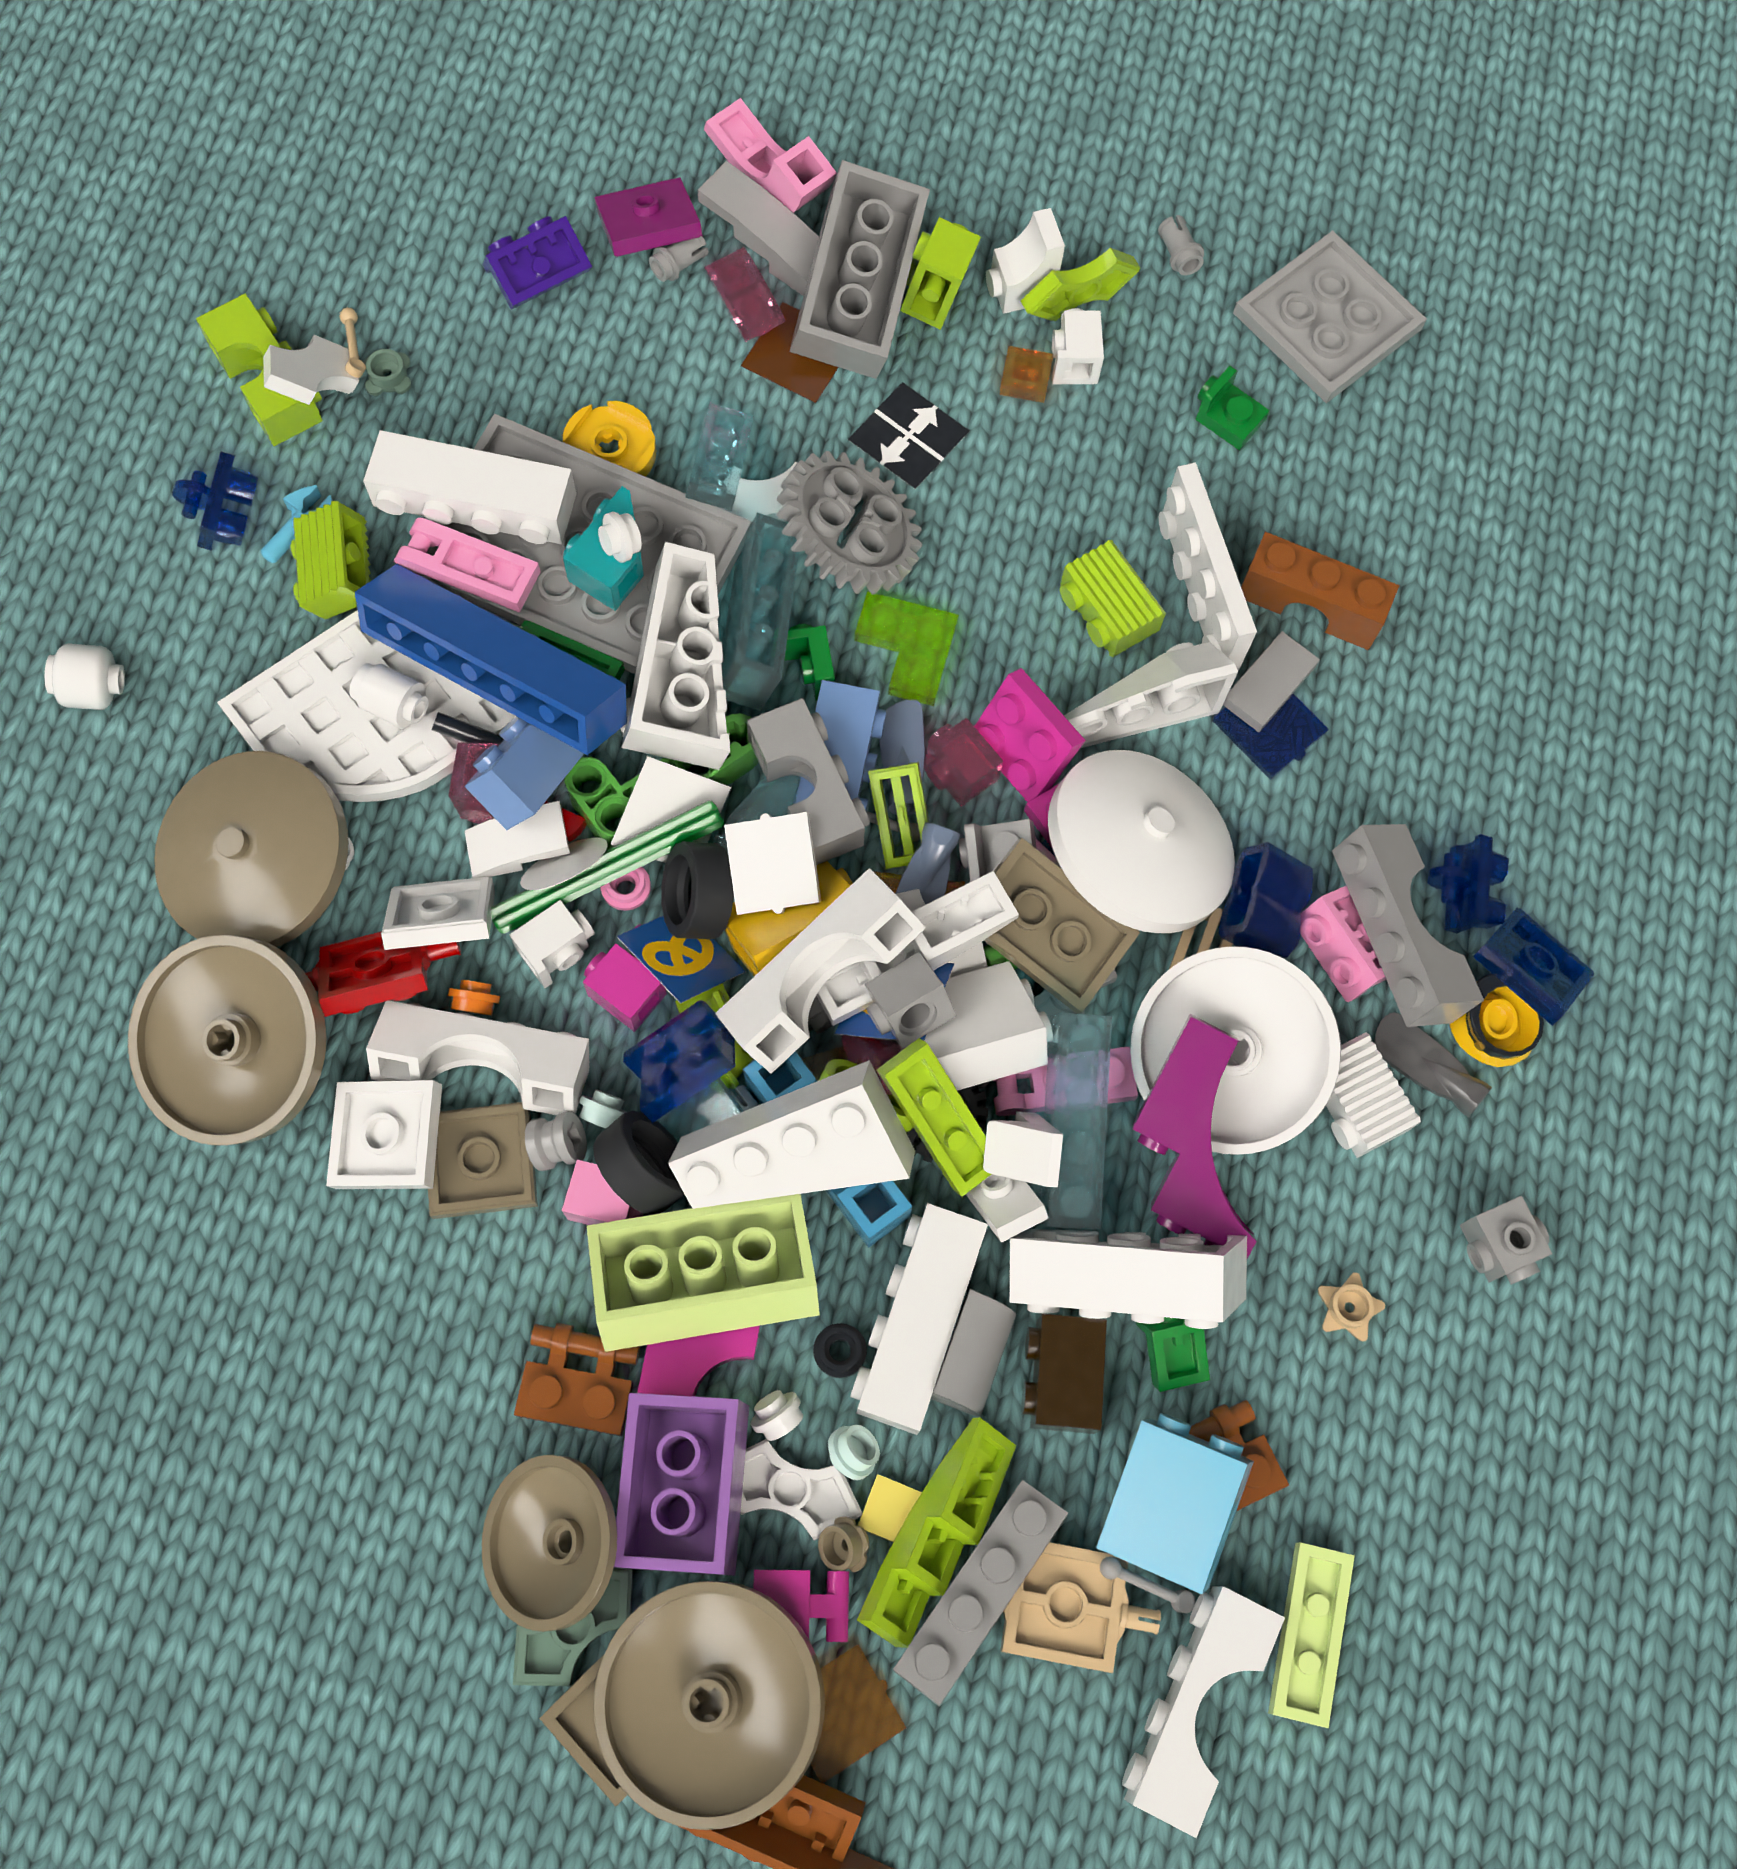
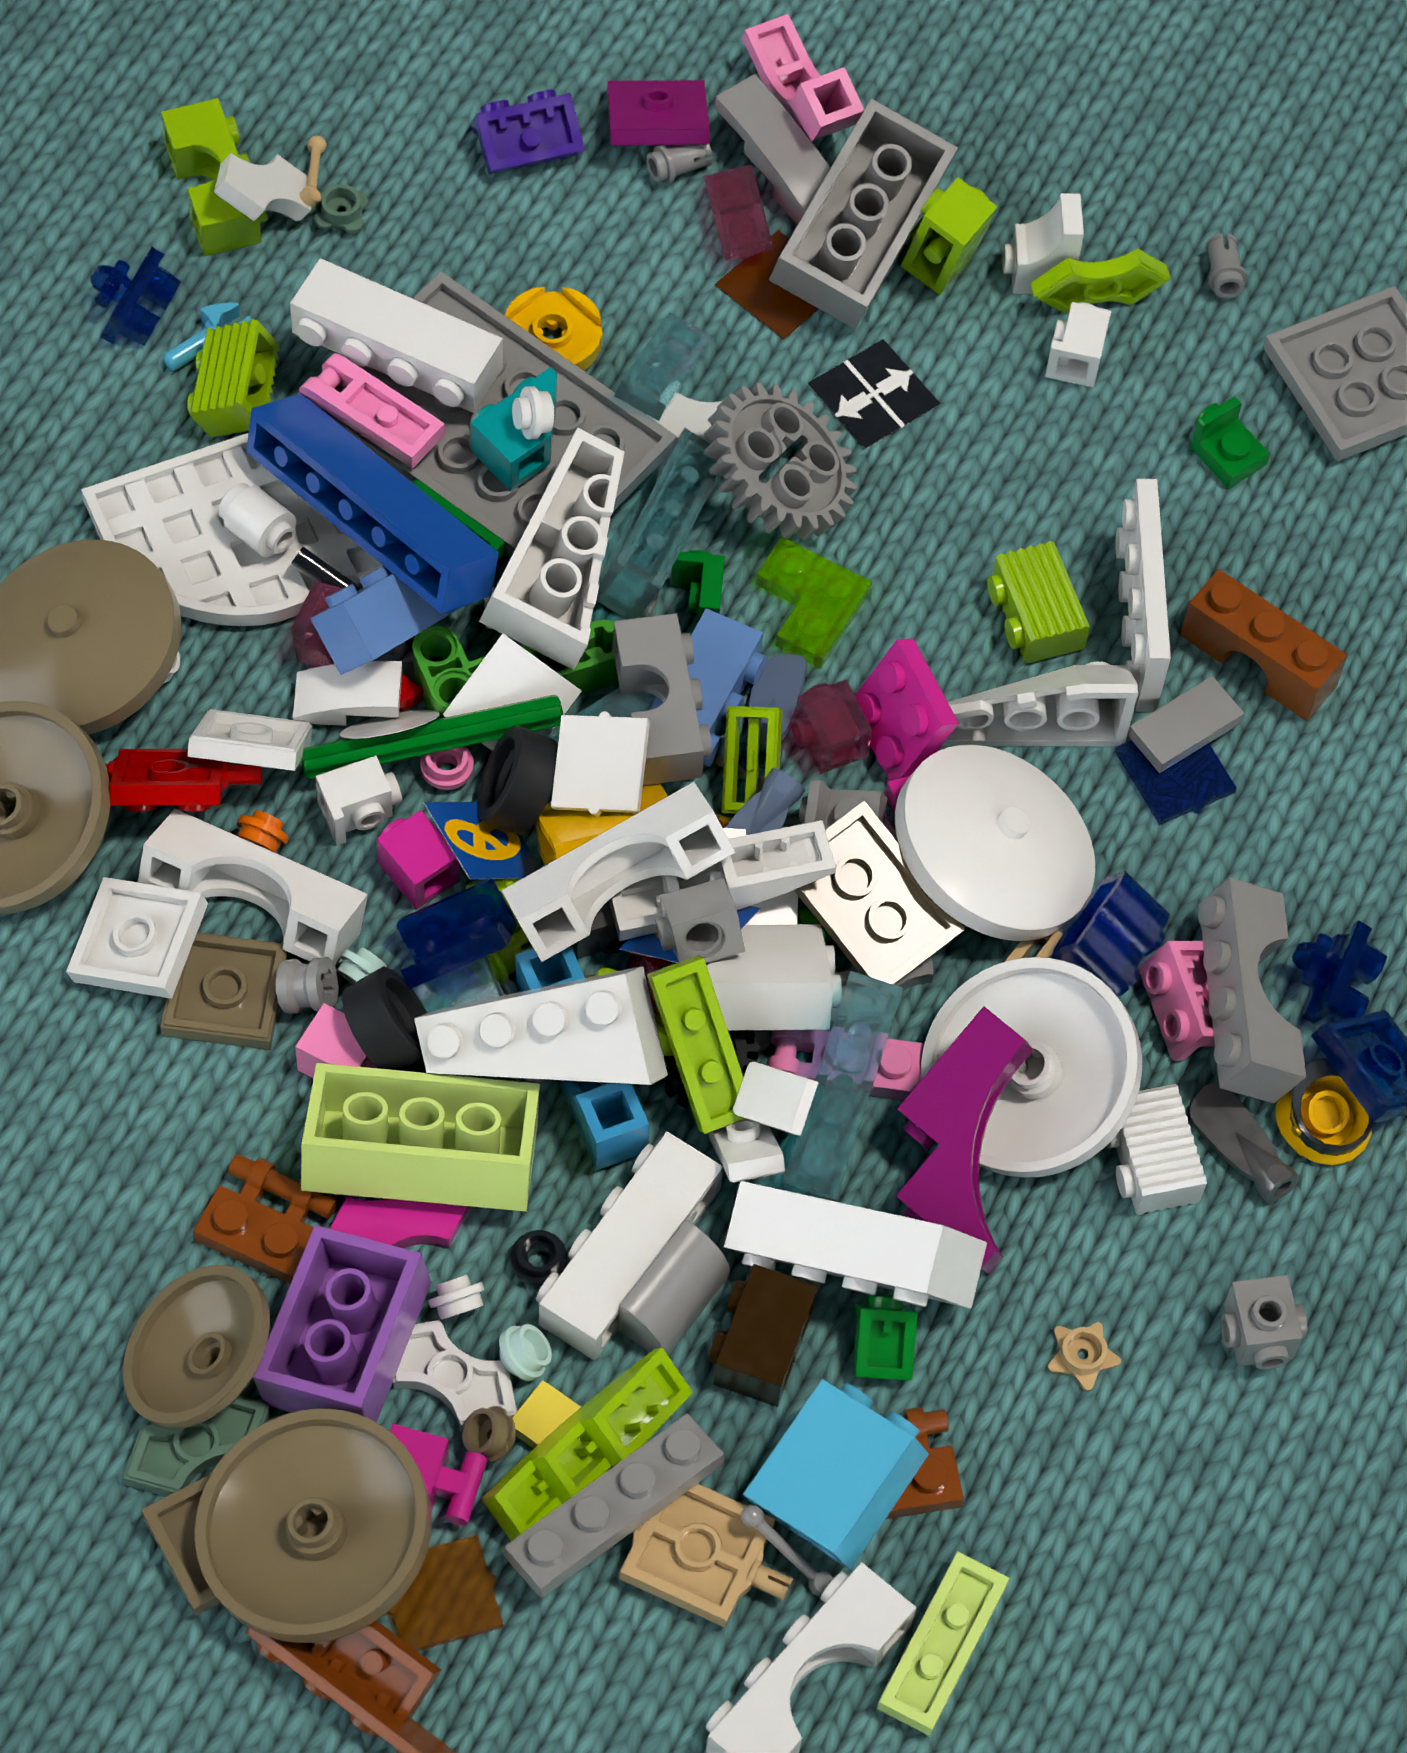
camera: 15 degrees right, 10 degrees down
(1026, 374) = (1016, 359): clear orange plate -> none

